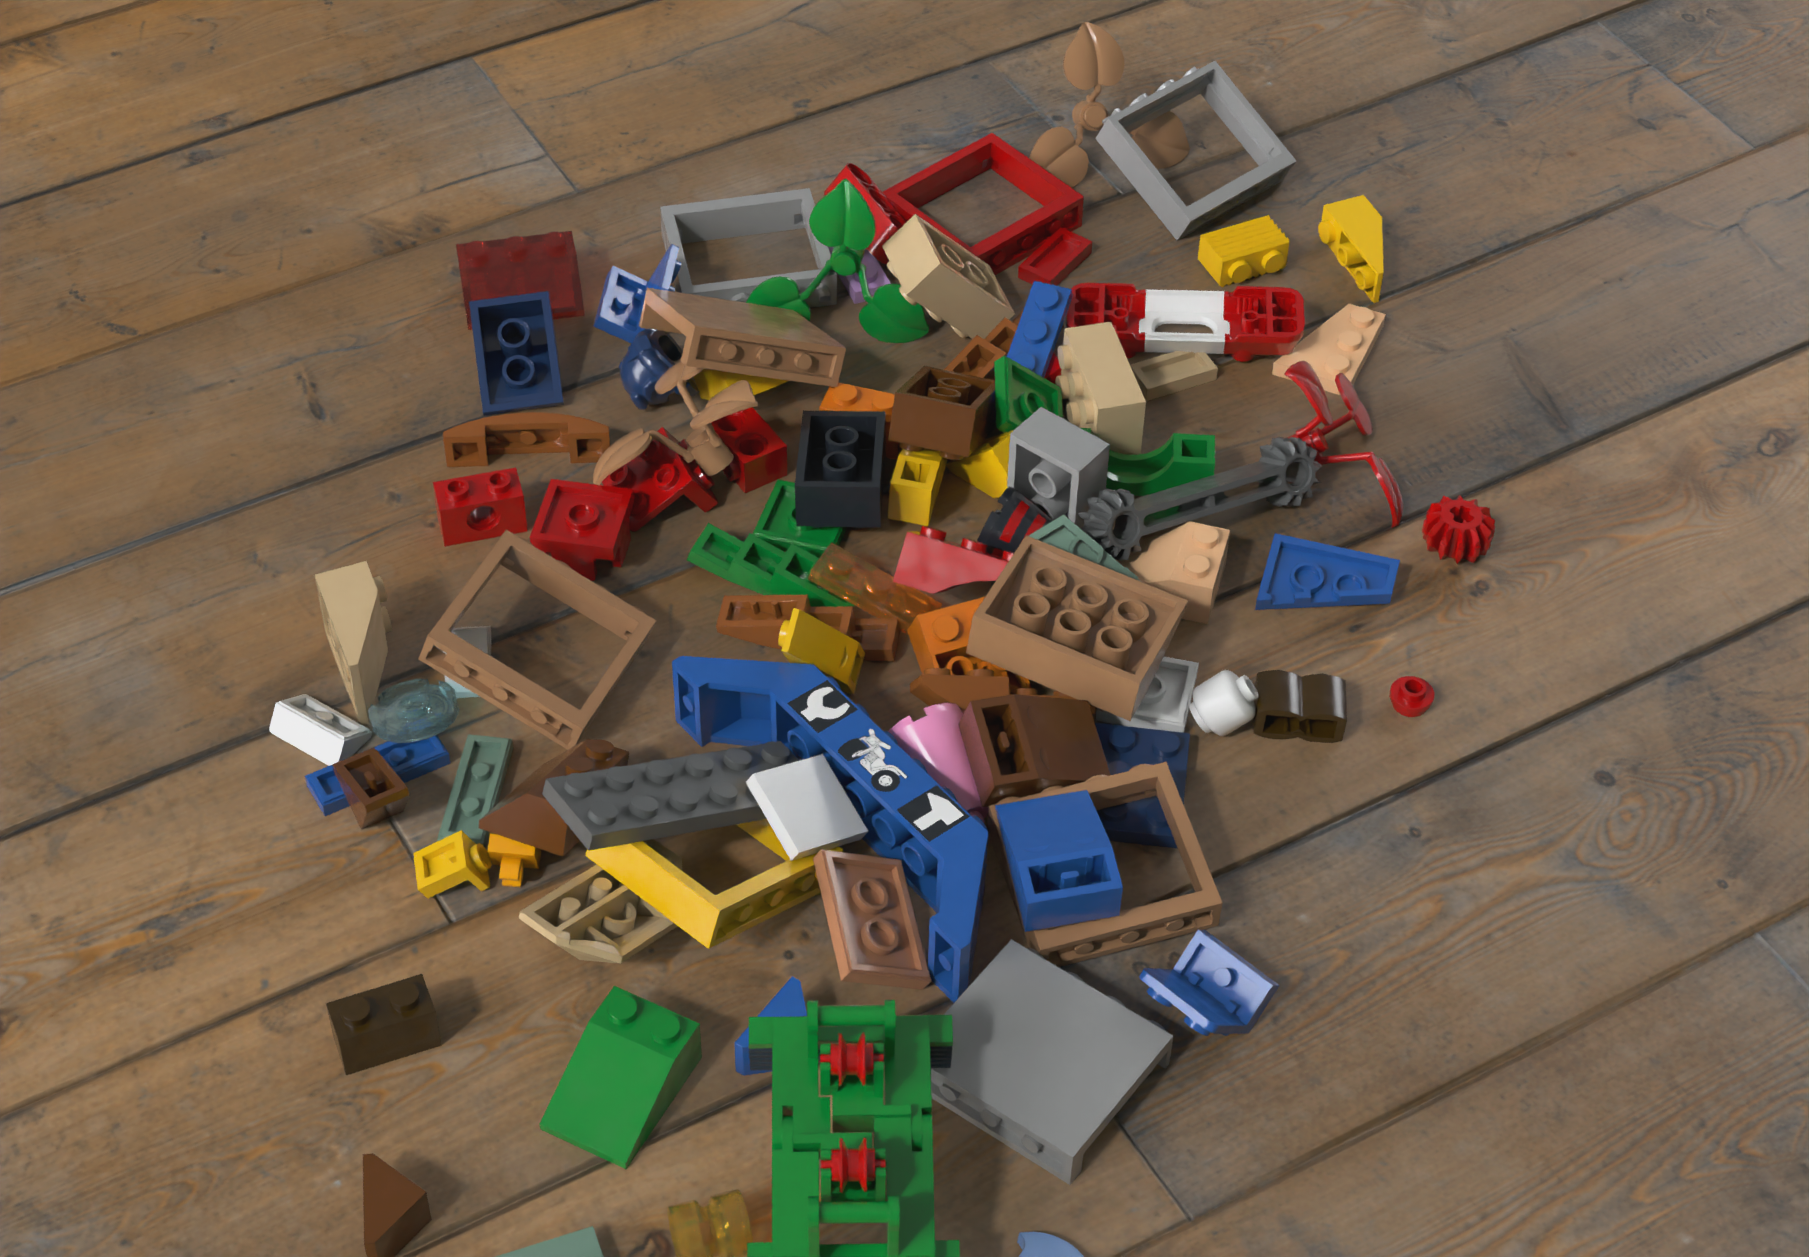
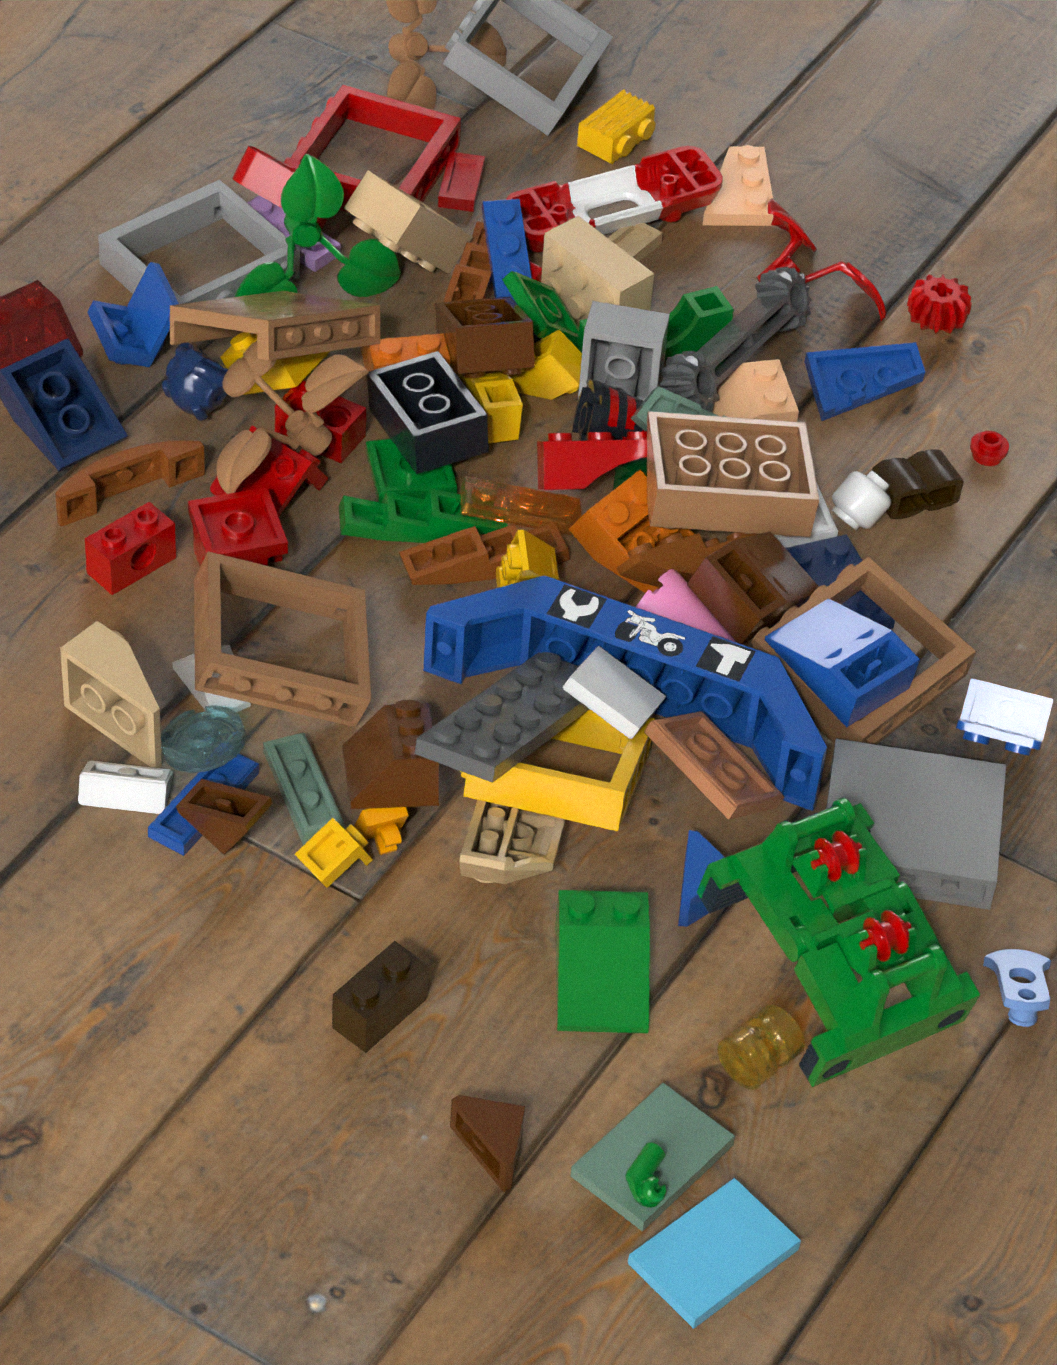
camera: 30 degrees left, 0 degrees up
(1356, 237) = (704, 92): yellow slope -> none

